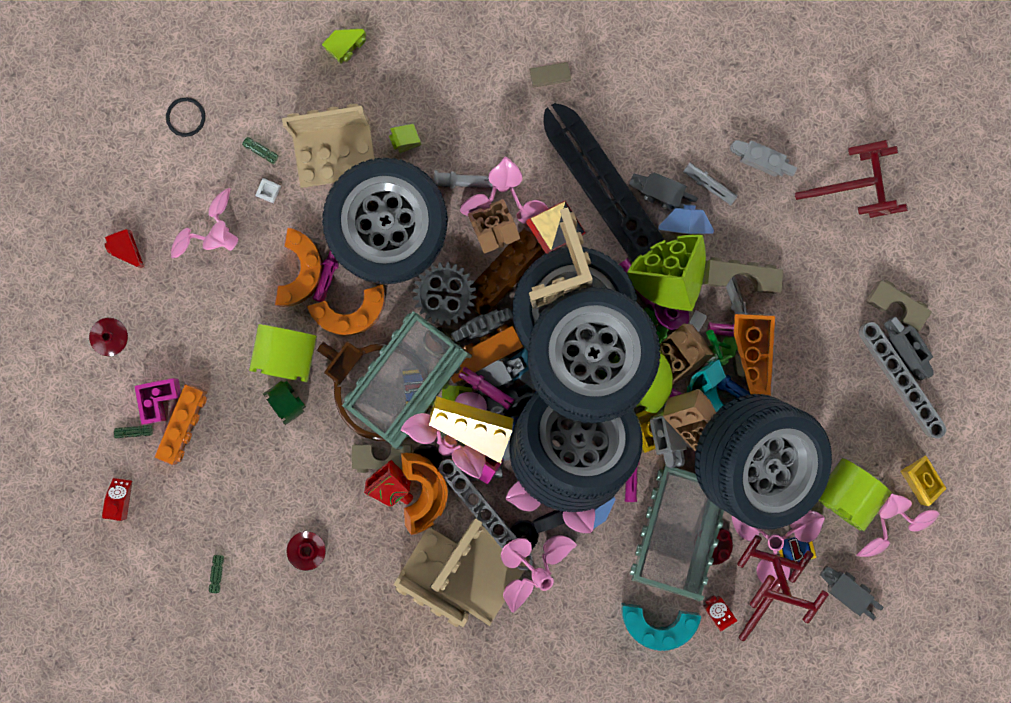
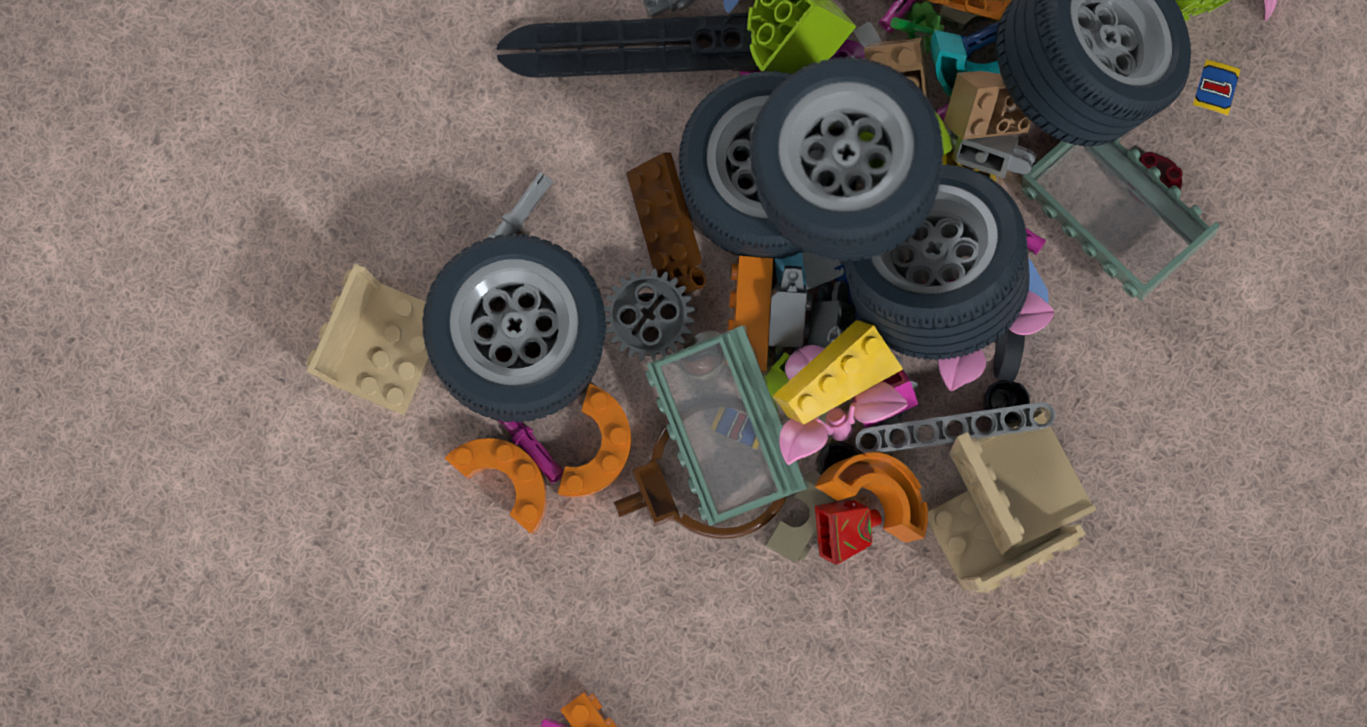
camera: 60 degrees left, 5 degrees down
(124, 247) = (336, 684): red slope -> none
(183, 100) = (198, 504): black piece -> none
(217, 236) = (402, 552): bright pink plant -> none
(260, 150) = (325, 437): clear green axle -> none
(268, 190) = (381, 458): white tile -> none
(282, 352) = (597, 558): lime brick -> none
(284, 402) = (659, 596): dark green brick -> none
(296, 553) = (878, 690): dark red dish -> none
(343, 42) = (259, 253): lime slope -> none
(404, 138) = (425, 248): lime slope -> none
(482, 325) = (716, 290): dark grey gear -> none
(485, 387) = (797, 332): dark pink pin -> none
(494, 226) = (602, 204): medium nougat brick -> none
(504, 177) = (551, 144): bright pink plant -> none
(516, 551) = (1027, 420): bright pink plant -> none
(544, 295) = (713, 105): tan bracket -> none
(547, 227) = (650, 131): tile -> none
(550, 74) = (459, 29): dark tan slope -> none
(659, 637) = (1236, 304): teal brick -> none
(719, 612) = (1244, 220): red slope -> none
(781, 583) = (1257, 134): dark red piece -> none
(805, 530) = (1229, 127): bright pink plant -> none
(849, 593) = (1307, 54): dark grey hinge -> none

